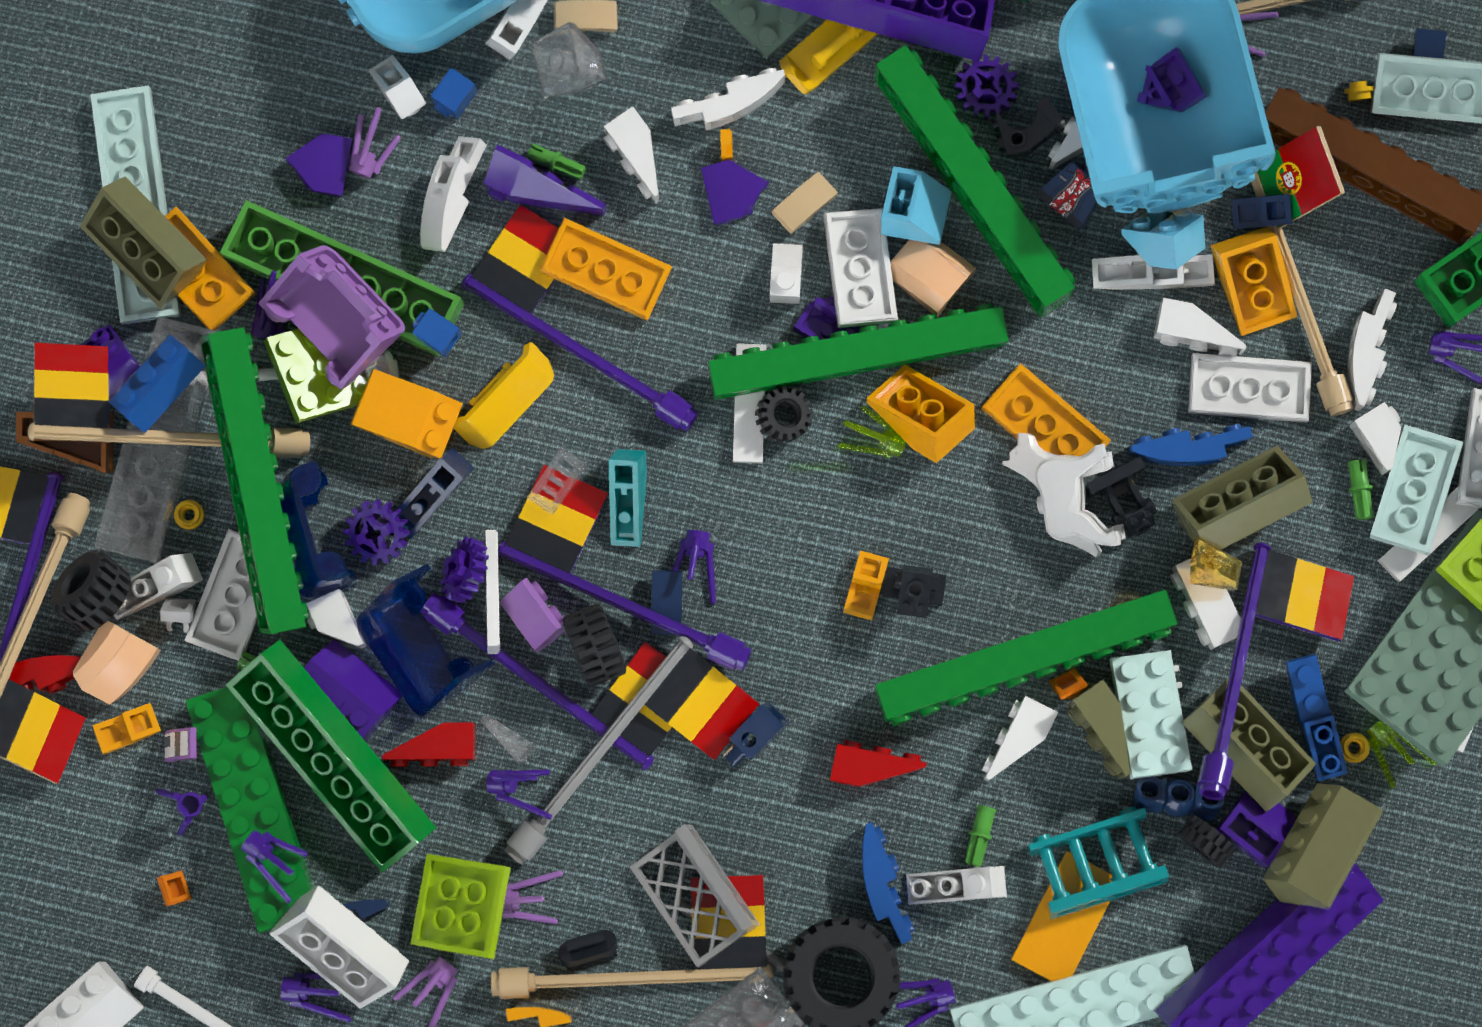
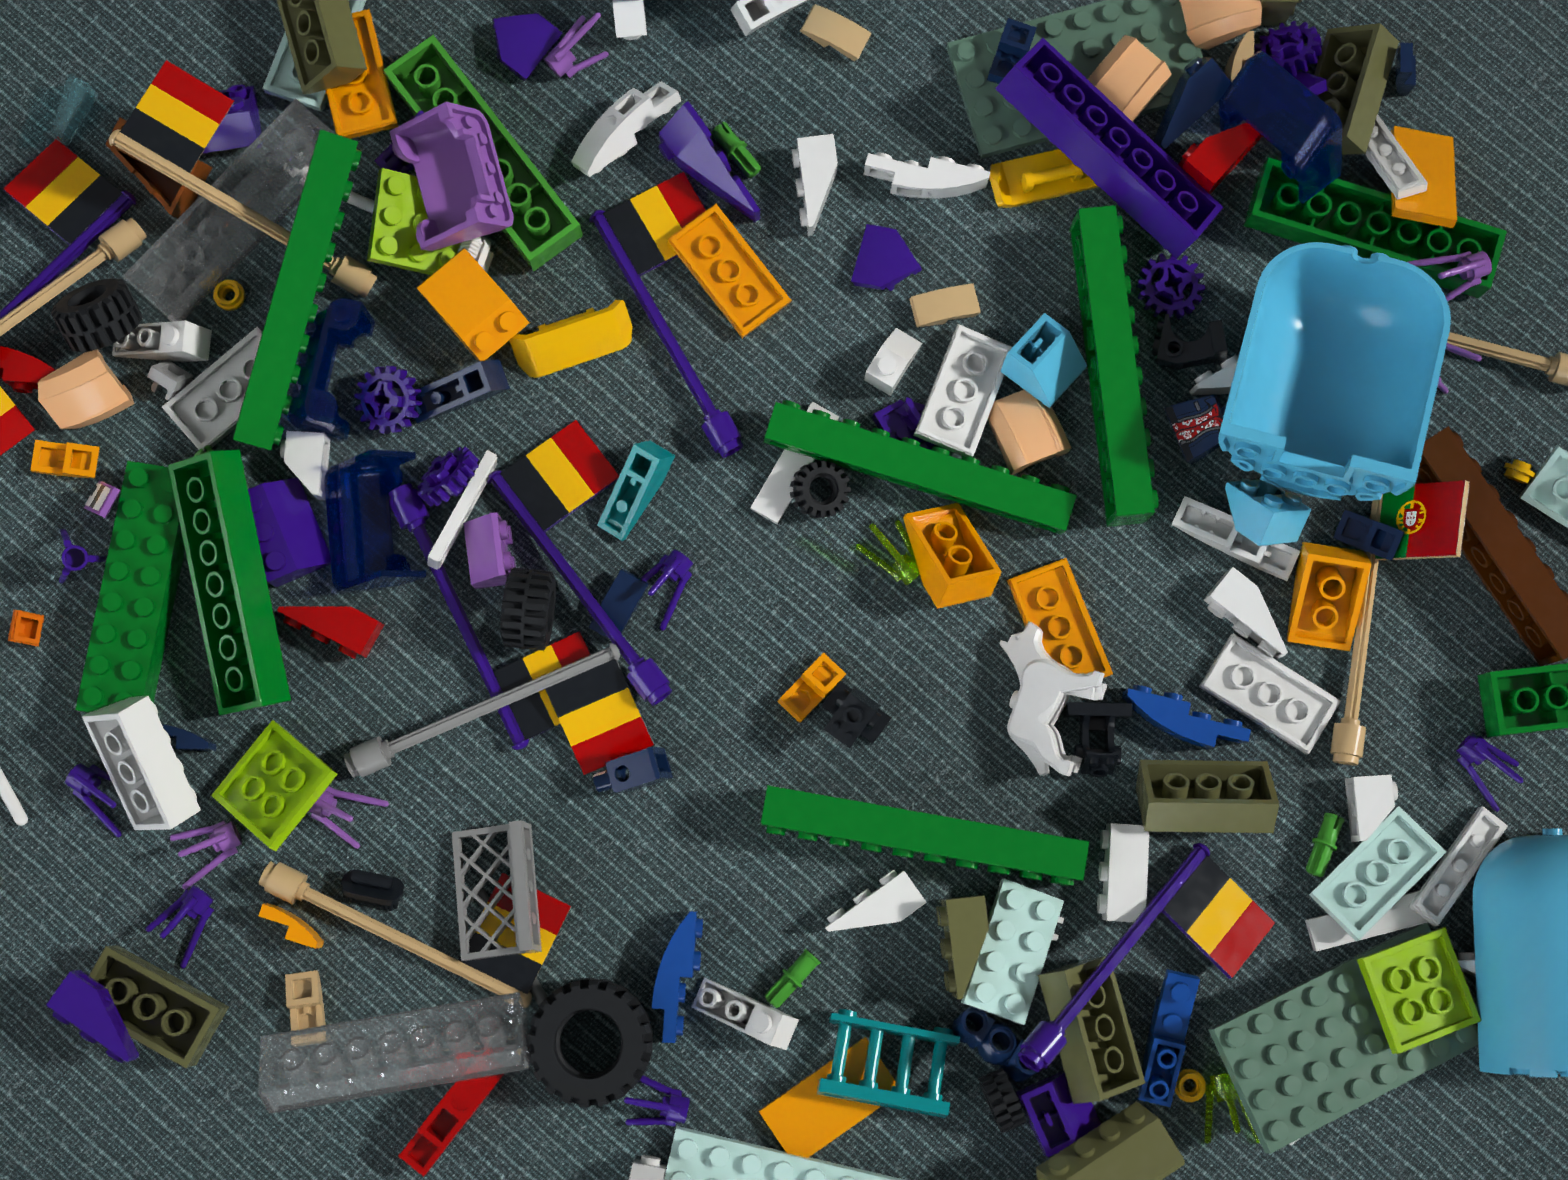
camera: 20 degrees right, 0 degrees up
(156, 383) = (255, 154): blue slope -> none
(260, 847) = (114, 633): dark purple plant -> none
(436, 332) = (538, 243): blue brick -> none
(453, 94) = (676, 40): blue brick -> none
(506, 782) = (380, 693): dark purple plant -> none
(516, 745) = (407, 662): clear slope -> none
(555, 464) = (574, 430): clear slope -> none
(567, 62) = (796, 64): clear slope -> none
(726, 145) = (901, 214): light orange tile -> none
(864, 767) = (717, 856): red slope -> none
(1068, 684) = (950, 881): orange slope -> none
(1171, 84) = (1346, 371): dark purple slope -> none
(1213, 567) = (1146, 844): clear yellow slope -> none
(1364, 359) = (1392, 724): white slope -> none

